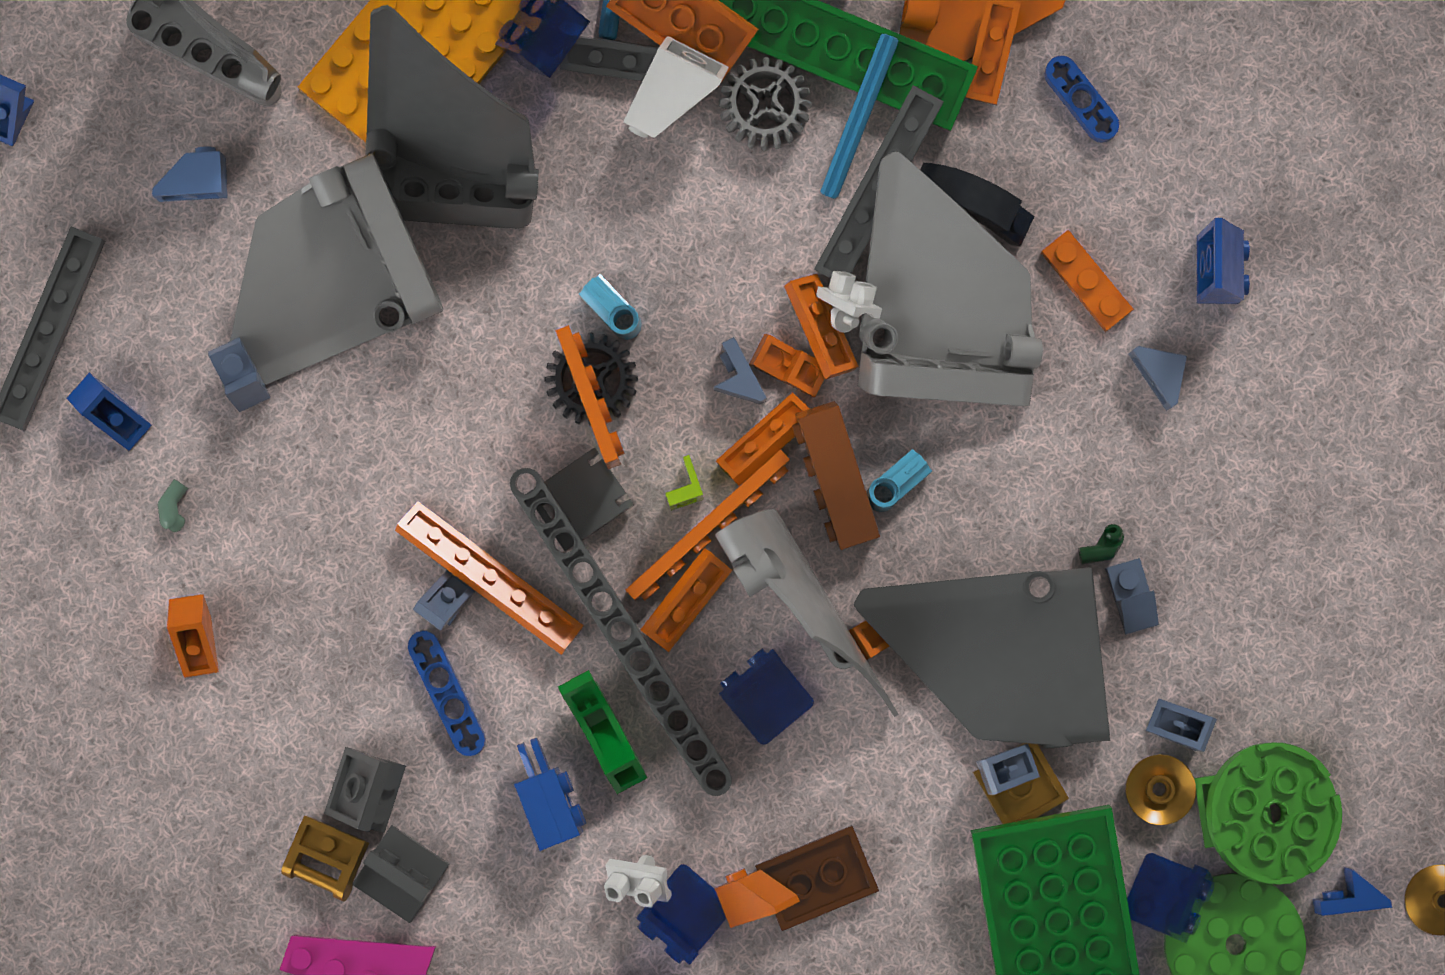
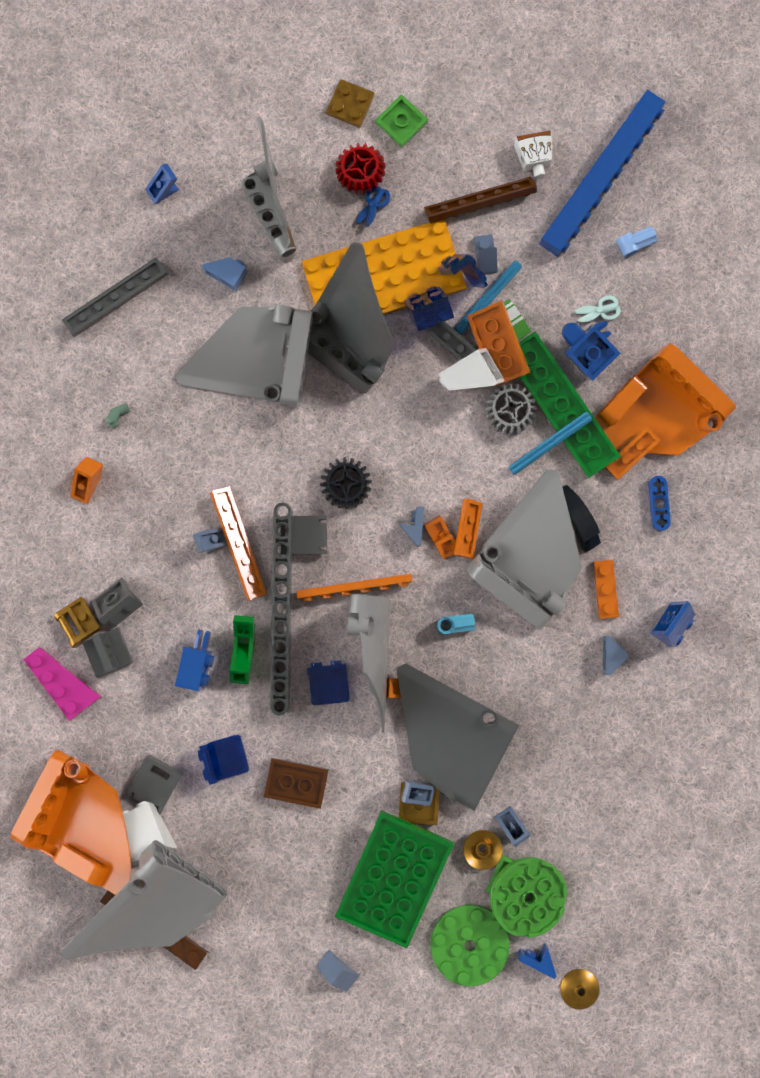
camera: 30 degrees right, 0 degrees up
(108, 411) = (116, 352): blue slope -> none
(239, 375) = (186, 375): sand blue slope -> none
(442, 695) = (181, 583): blue beam -> none
(586, 385) = (340, 484): orange plate -> none
(610, 306) = (377, 455): medium azure piece -> none
(637, 879) = (213, 728): white hips -> none
(686, 599) = (321, 613): orange plate -> none
(688, 494) = (355, 566): lime panel -> none
(752, 897) = (260, 772): orange slope -> none
(762, 441) = (407, 564): orange plate -> none
(836, 474) = (429, 602): dark orange brick -> none
(849, 300) = (488, 525): white hips -> none
(856, 223) = (514, 493): dark grey plate -> none
(1106, 547) = (532, 719): dark green arm -> none
(1132, 596) = (529, 750): sand blue slope -> none
(1169, 896) = (453, 903): clear blue bracket -> none

